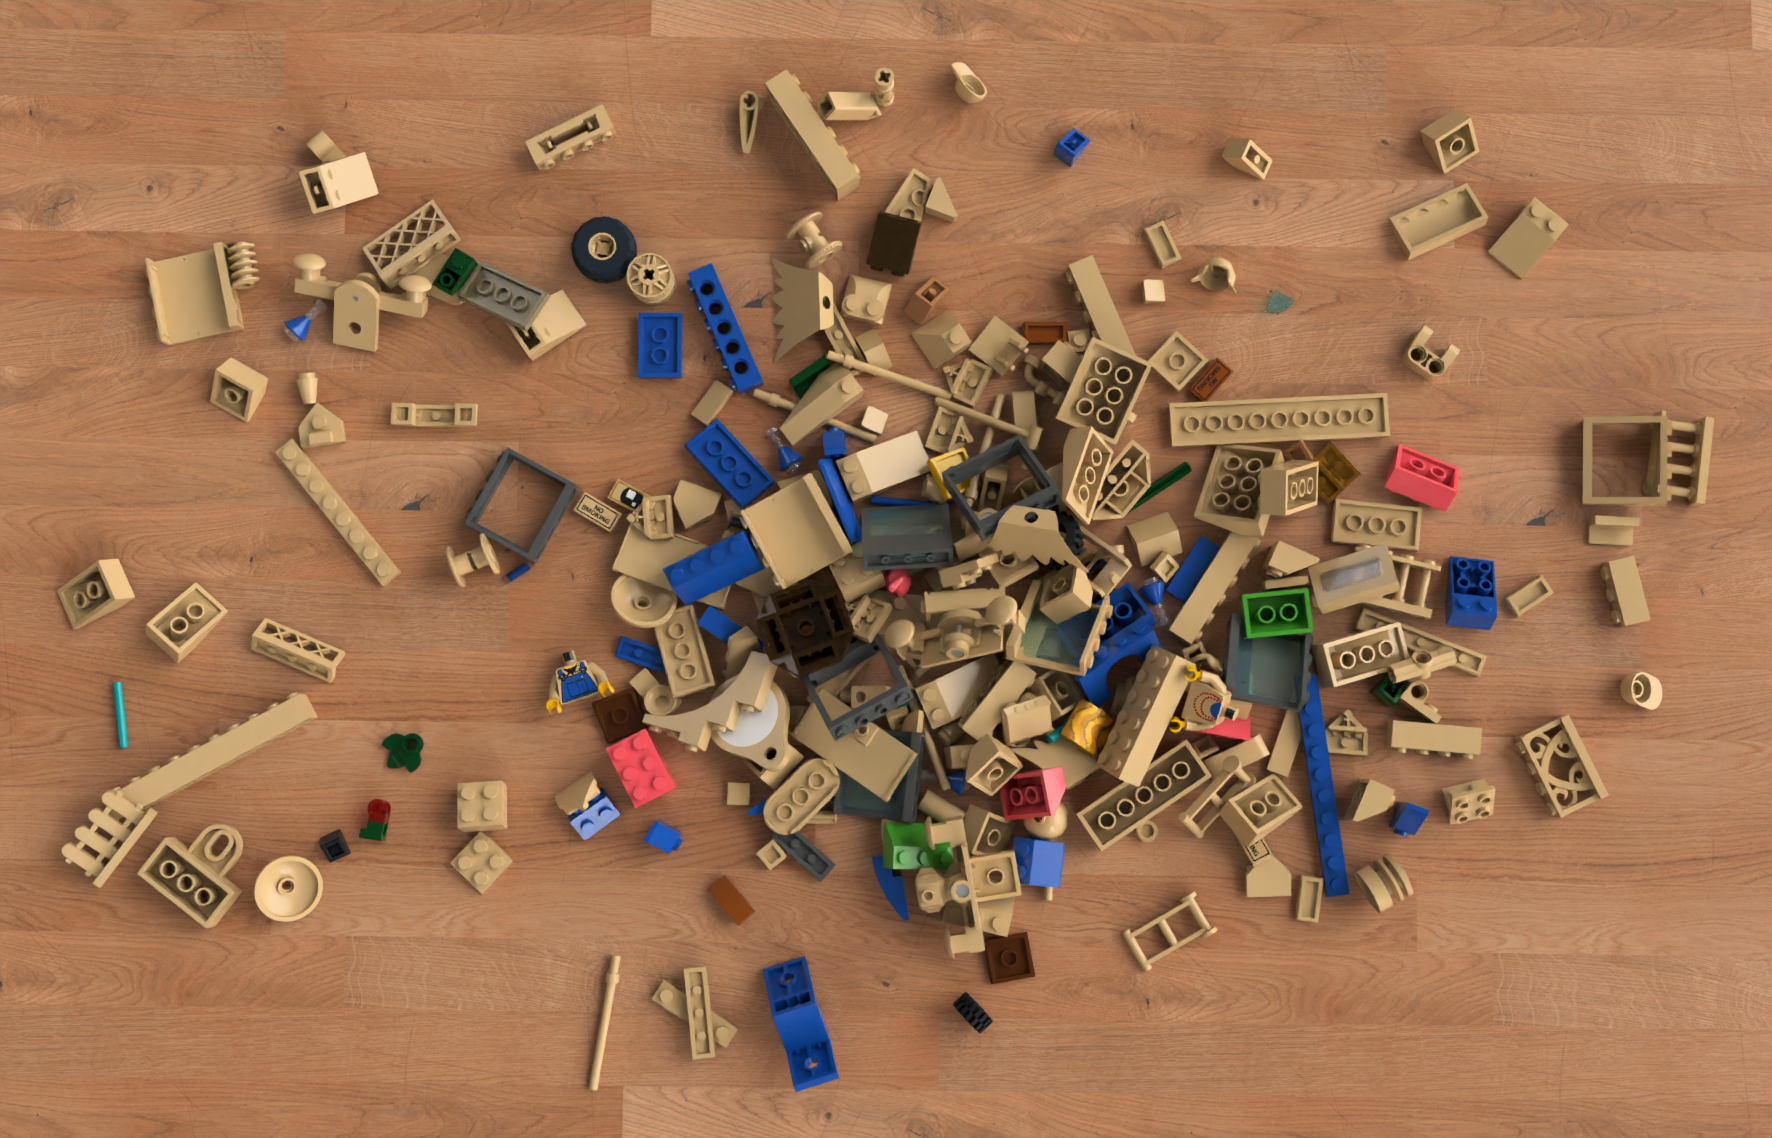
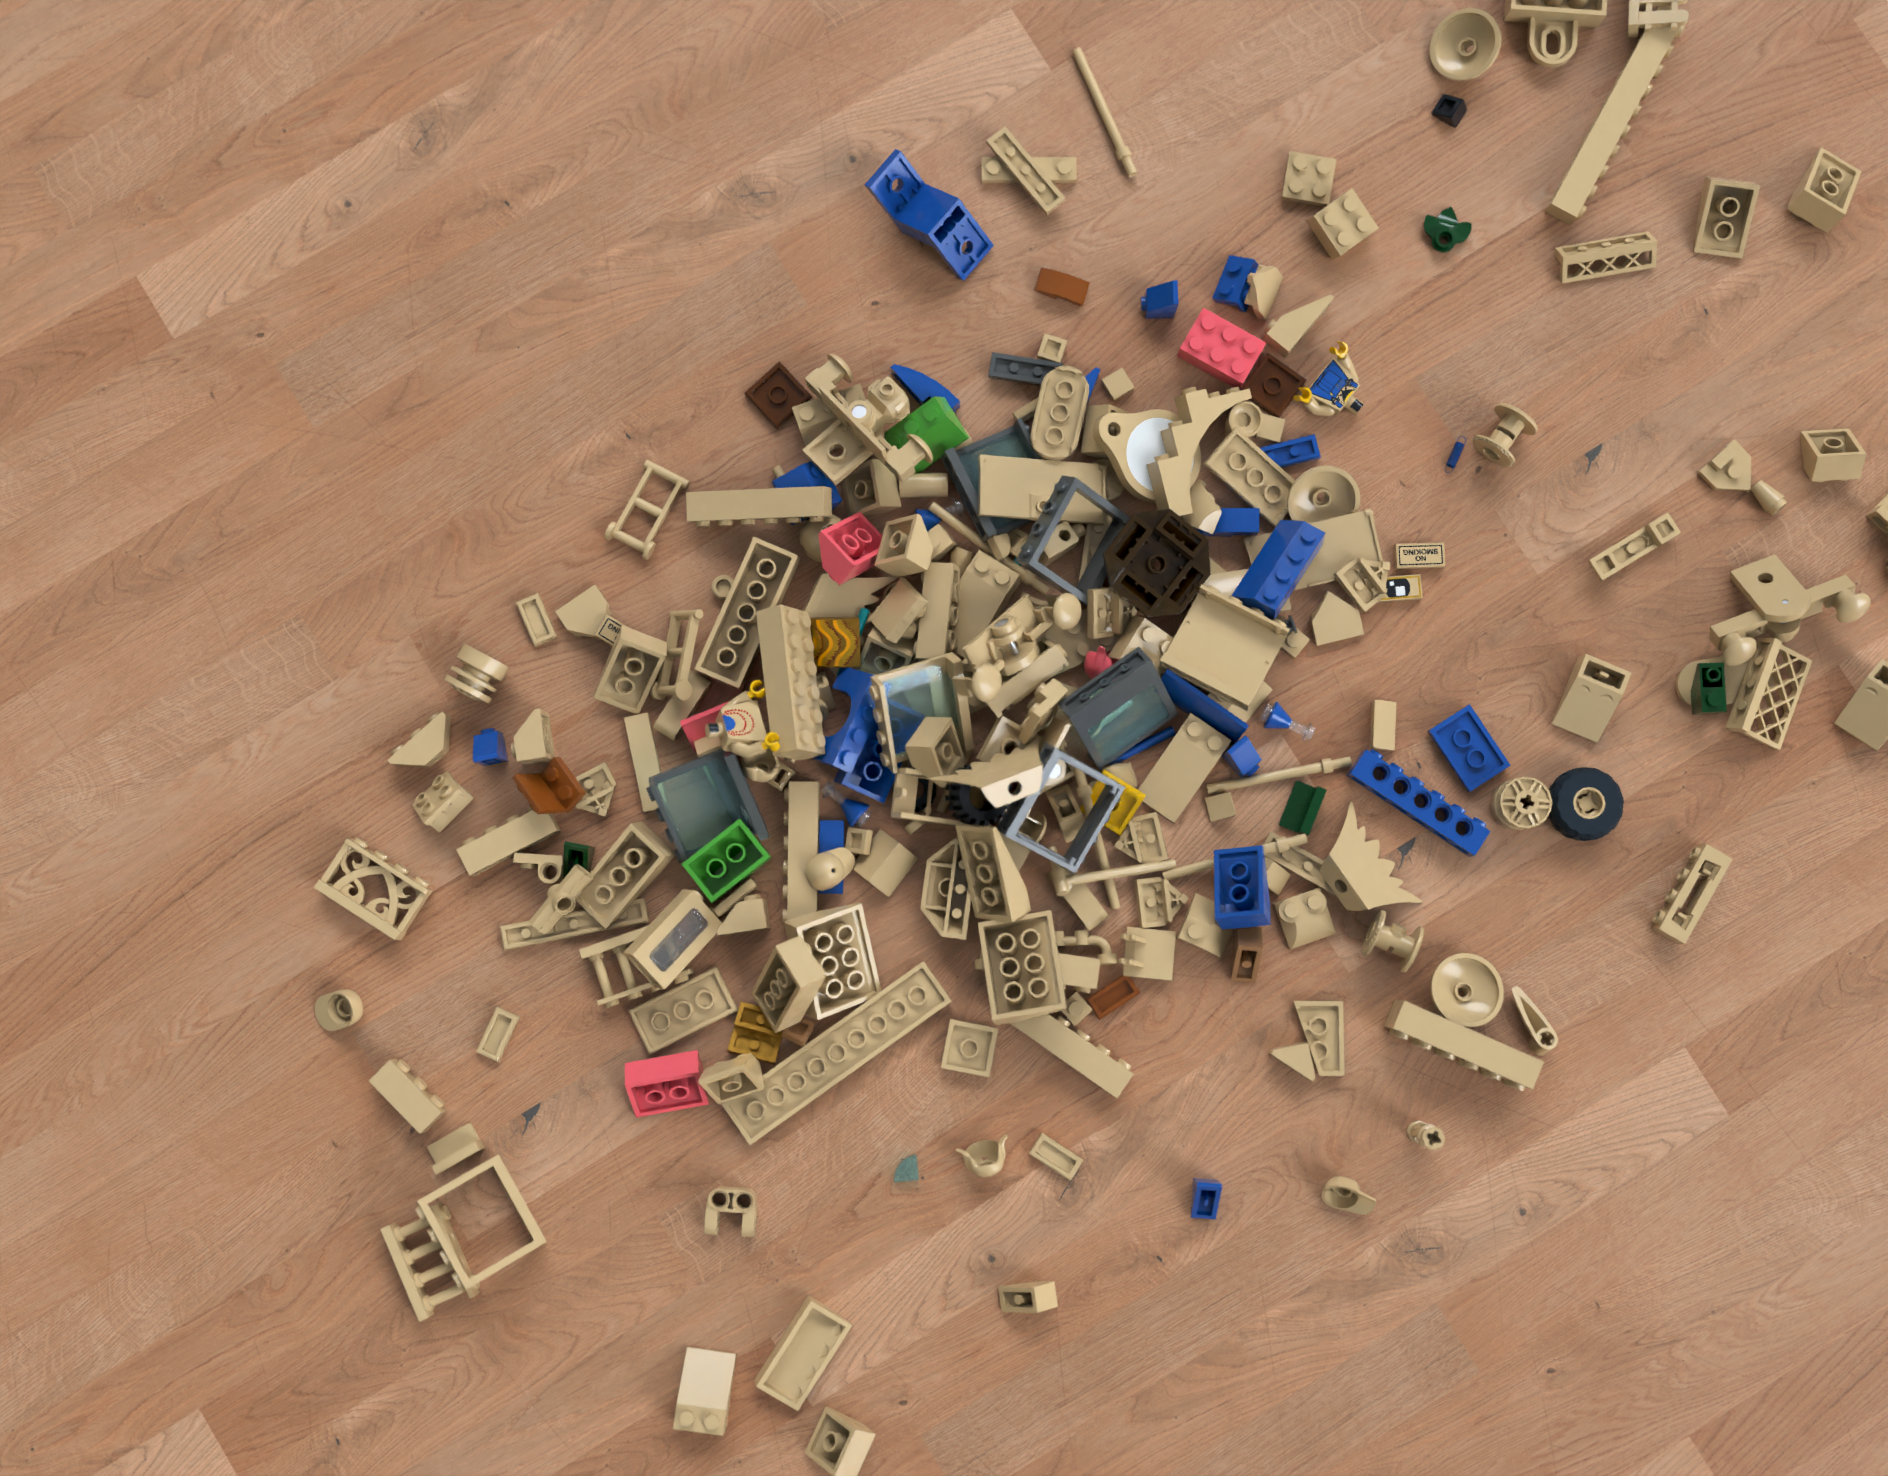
camera: 150 degrees right, 0 degrees up
(120, 715) = (1723, 100): teal bar -> none
(298, 327) = (1817, 547): piece -> none
(338, 512) = (1658, 403): tan plate -> none
(378, 820) = (1426, 154): leg -> none
(493, 481) = (1534, 503): dark grey window -> none
(503, 296) = (1648, 696): dark tan tile -> none
(578, 749) = (1294, 325): none -> tan slope
(729, 464) = (1328, 677): blue tile -> none
(774, 161) = (1480, 985): none -> tan dish
(827, 397) = (1280, 792): tan wedge -> none
(848, 106) = (1447, 1094): tan piece -> none
(893, 243) = (1314, 987): dark brown brick -> none
(901, 347) = (1241, 888): none -> blue slope
(972, 1012) = (780, 323): black tyre -> none
(1081, 873) = (759, 505): none -> tan brick
(1153, 291) = (1035, 1103): tan slope -> none
(1163, 482) = (908, 922): dark green axle -> none
(1205, 747) = (717, 694): tan slope -> none
(1207, 563) = (820, 867): none -> tan cap
(1210, 380) = (926, 1050): dark orange tile -> none
(1322, 794) = (583, 724): blue plate -> none
(1370, 448) = (732, 1078): none -> tan slope
(1379, 755) = (552, 789): none -> dark orange bracket
(1456, 853) = (425, 745): none -> tan slope
(1470, 593) = (554, 1000): blue slope -> none

